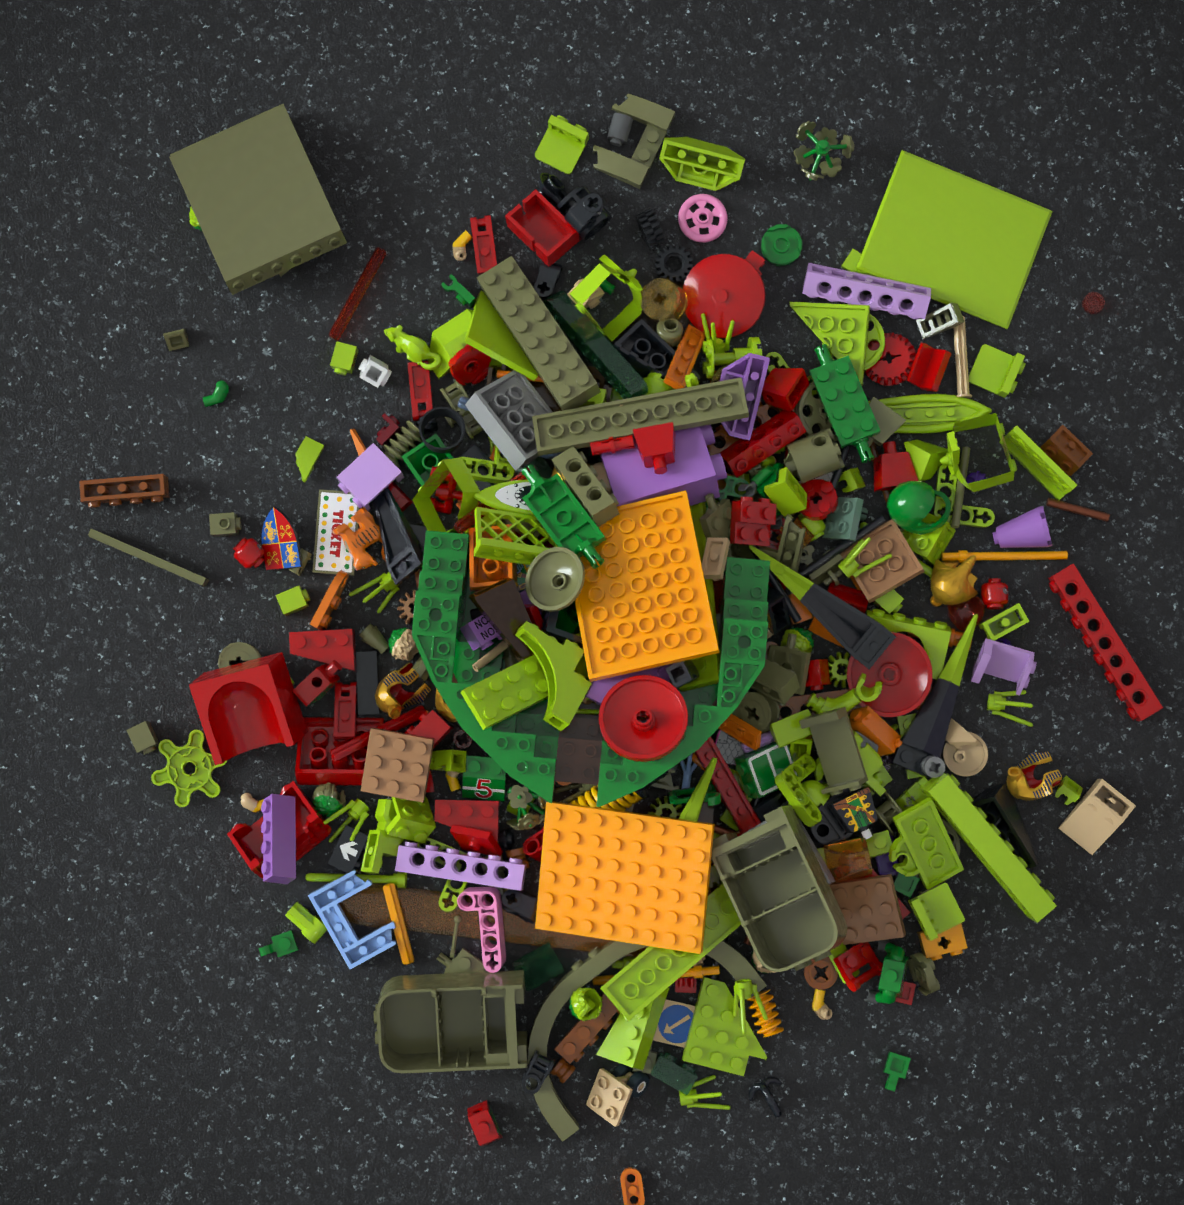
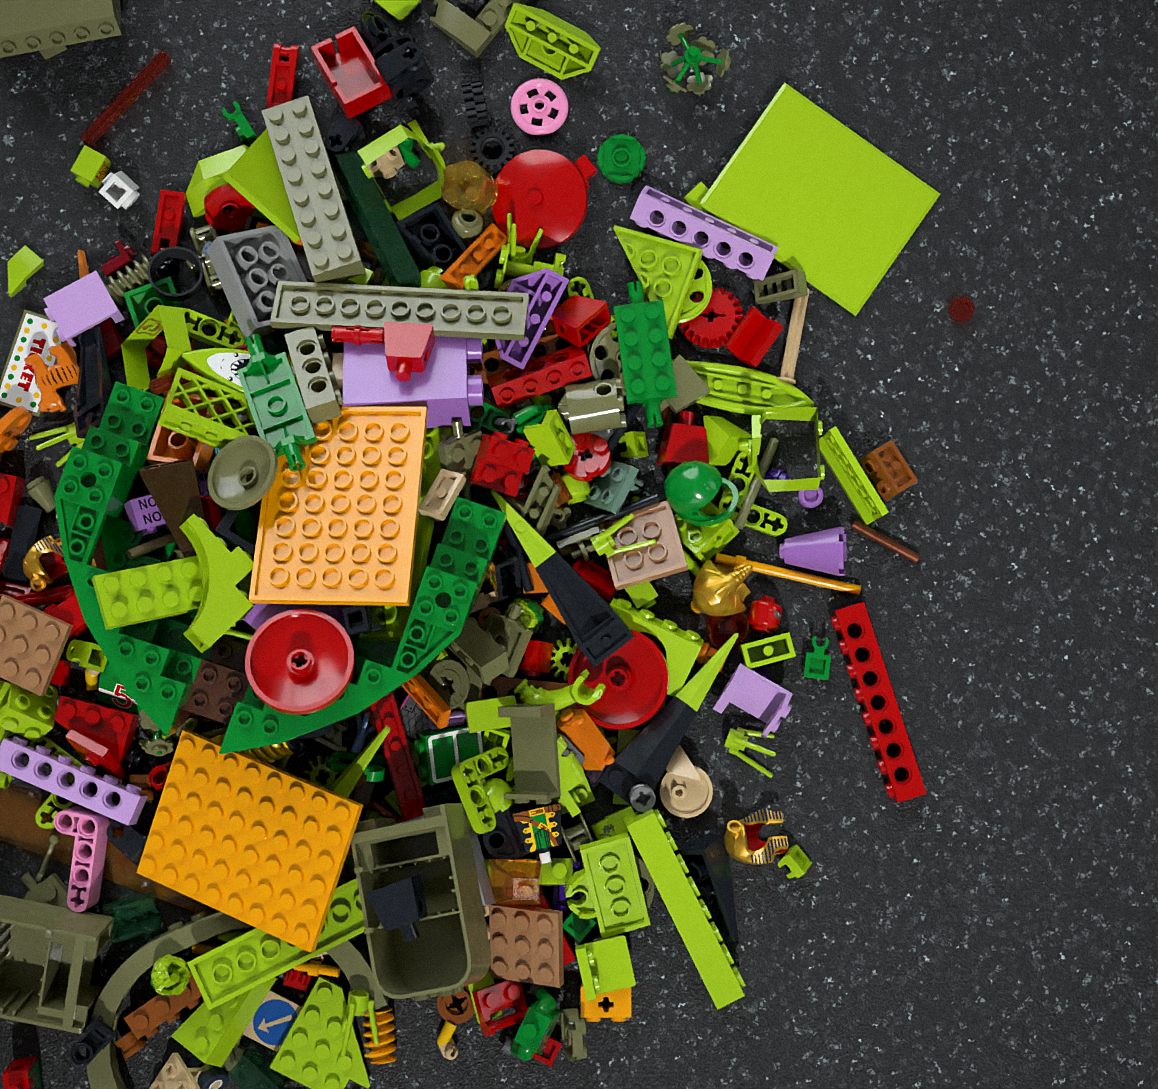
camera: 10 degrees right, 0 degrees up
(414, 347) = (172, 174): lime animal -> none
(459, 246) = (255, 73): arm -> none
(767, 896) = (400, 906): none -> black torso
(996, 370) = (830, 359): lime bracket -> none
(1007, 489) = (810, 498): none -> medium lavender tile
(1046, 624) = (816, 663): none -> green plate
(1096, 816) = (819, 900): tan slope -> none

